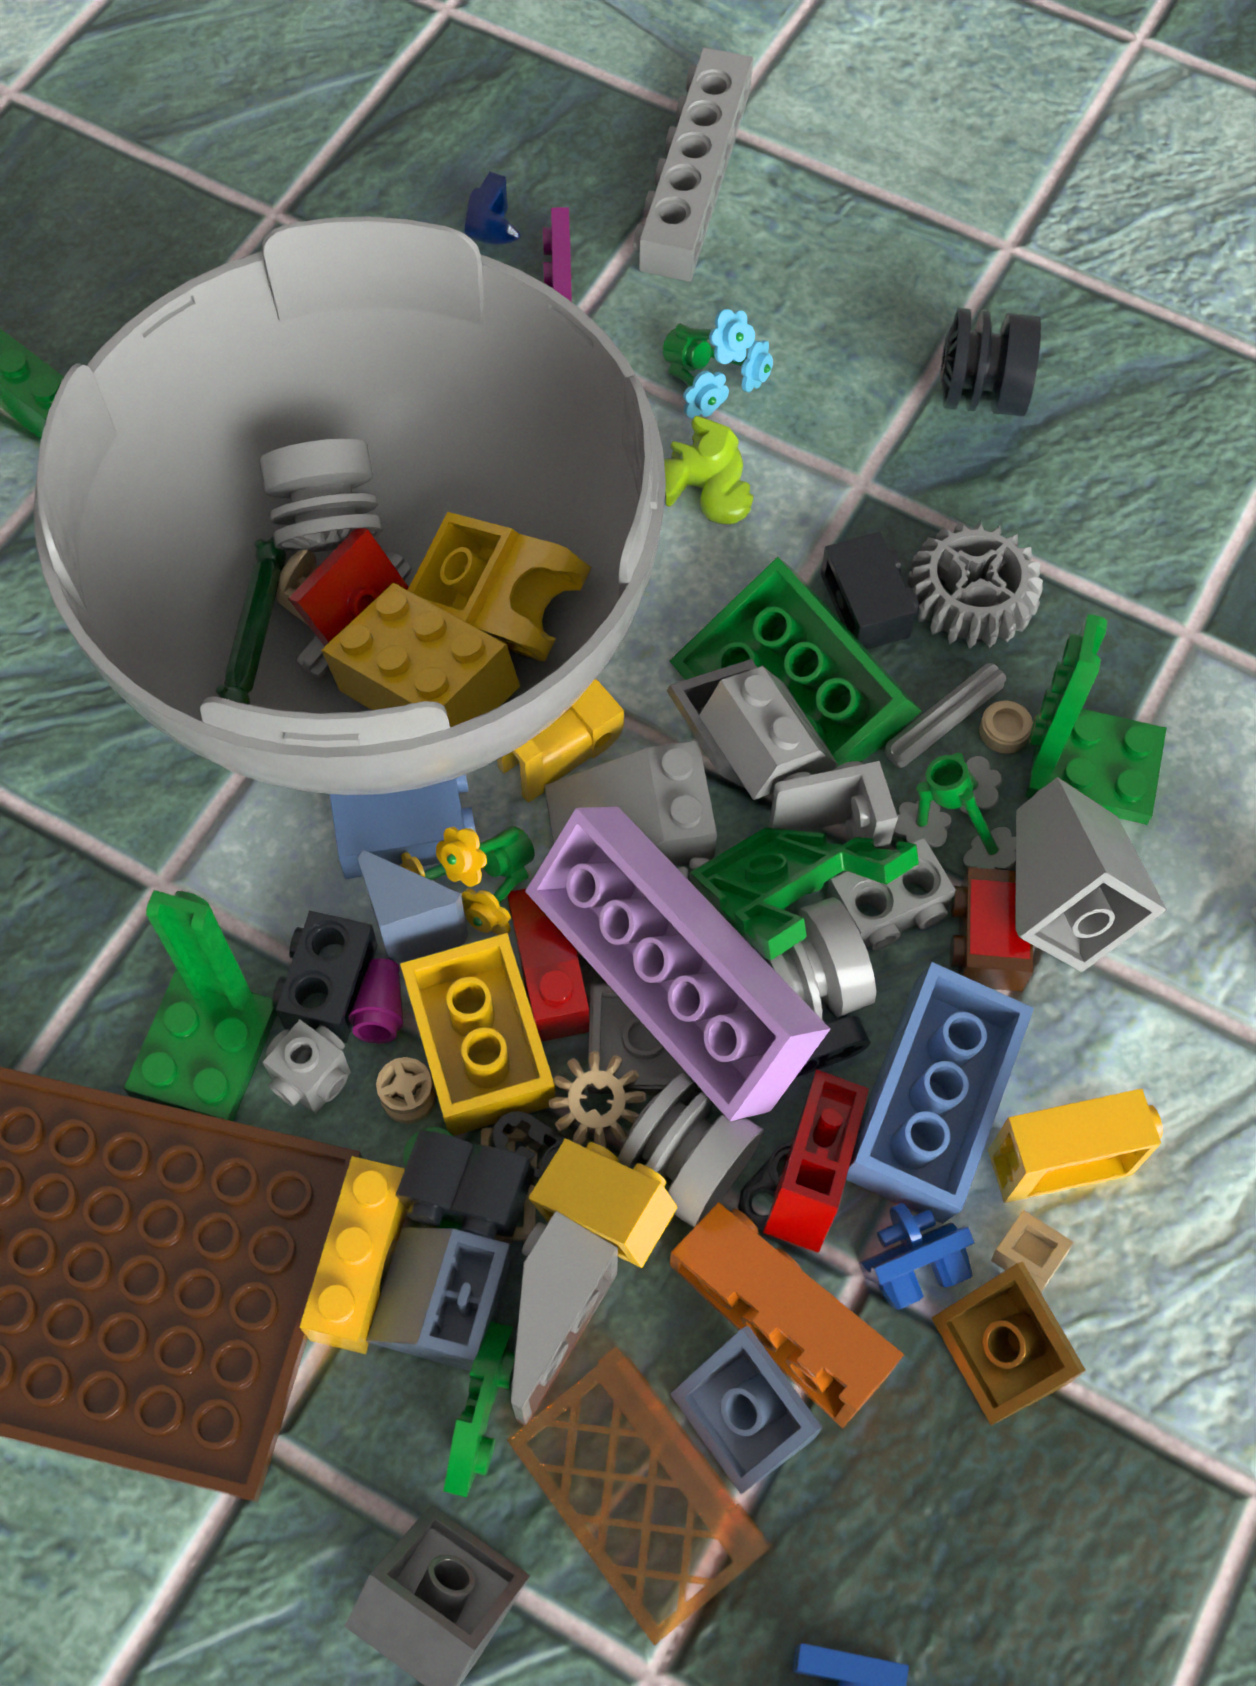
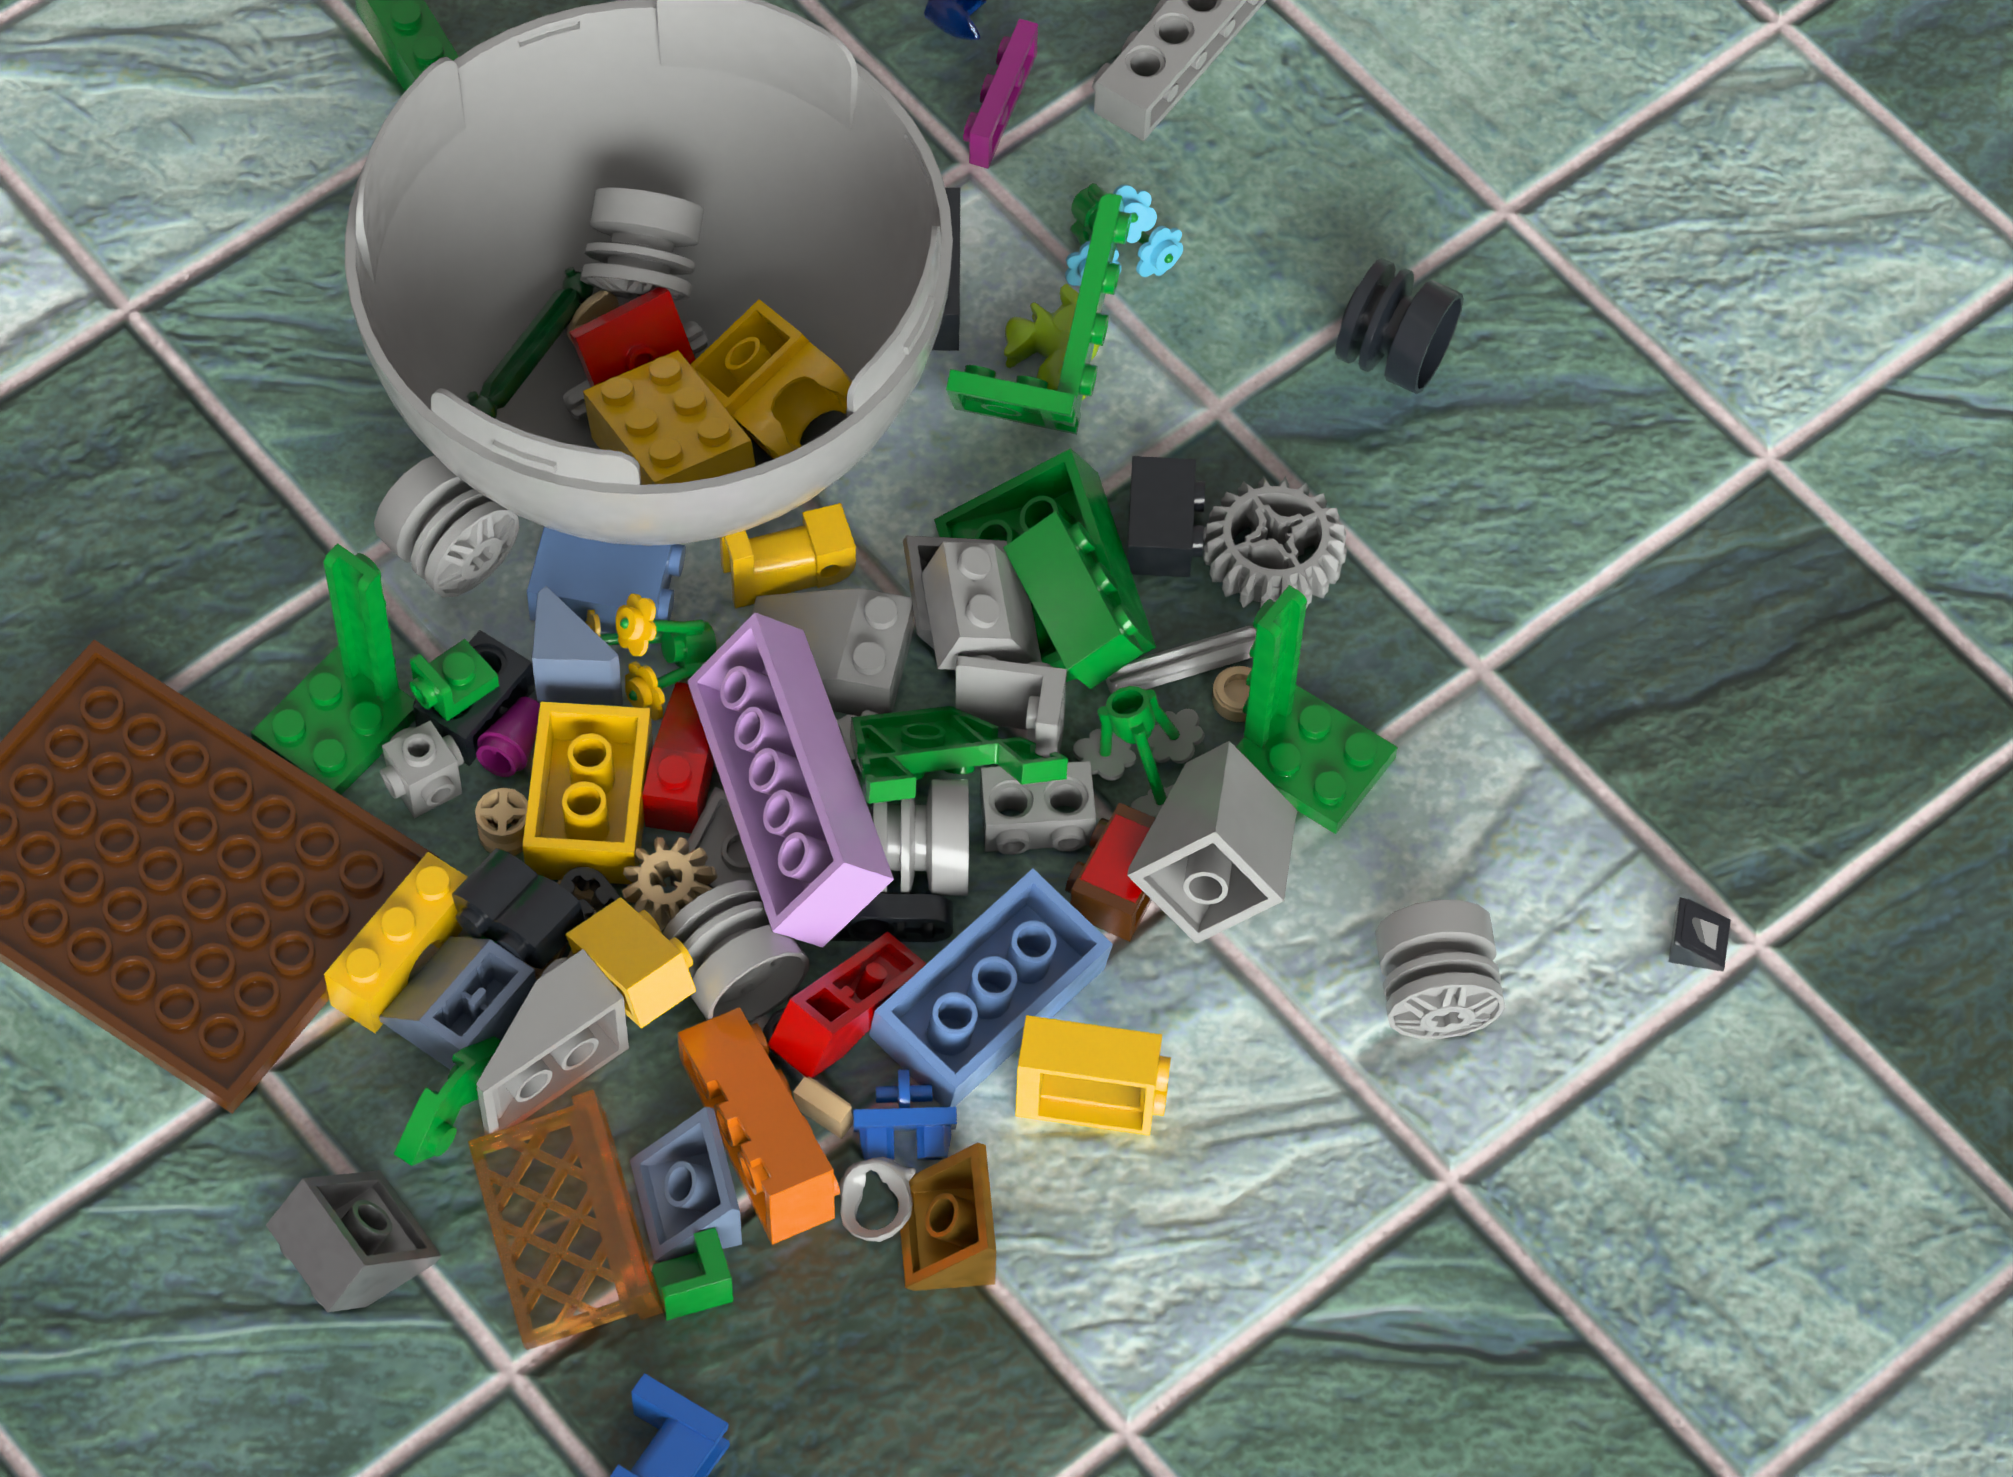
camera: 20 degrees right, 5 degrees down
(234, 823) = (445, 528): none -> light grey wheel
(305, 971) = (452, 679): none -> green bracket
(717, 524) = (1028, 398): none -> green bracket
(789, 1500) = (696, 1279): none -> green panel
(837, 1270) = (823, 1106): none -> tan tile
(851, 691) = (1075, 599): none -> green brick
(938, 1319) = (851, 1194): none -> light grey piece
(1036, 1245) = (1015, 1157): tan plate -> none

